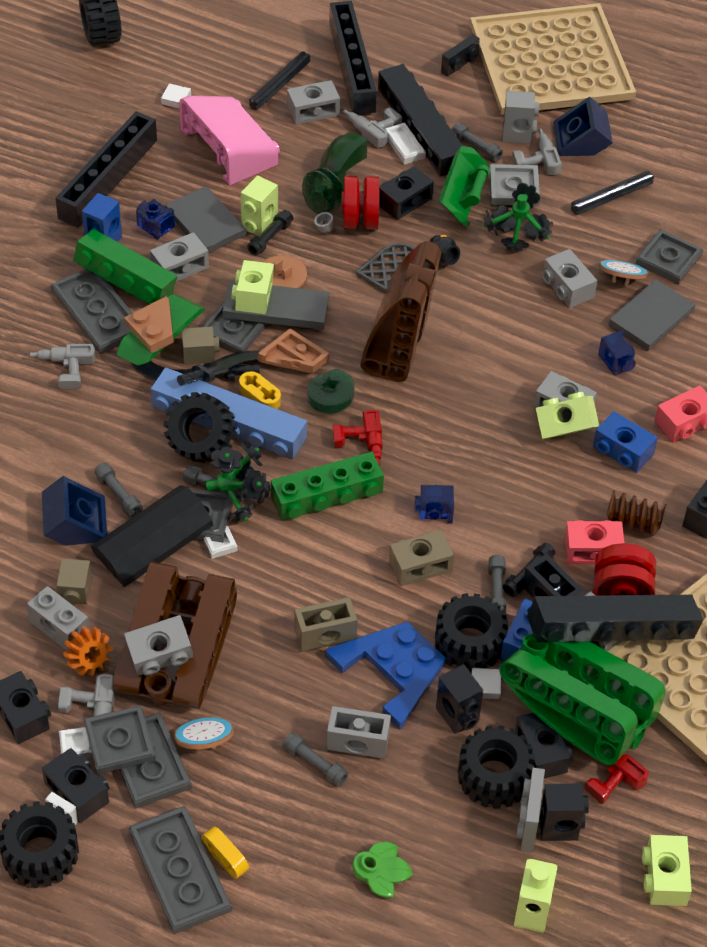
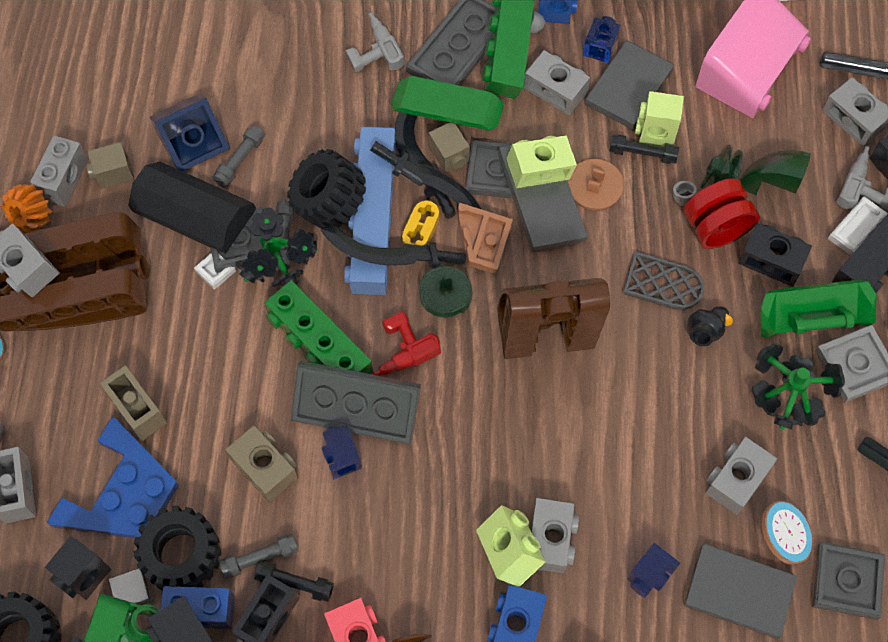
camera: 70 degrees right, 15 degrees up
(152, 325) = (436, 92): nougat wing -> none
(286, 406) = (391, 256): none -> black sword
(398, 476) = (356, 400): none -> dark grey tile

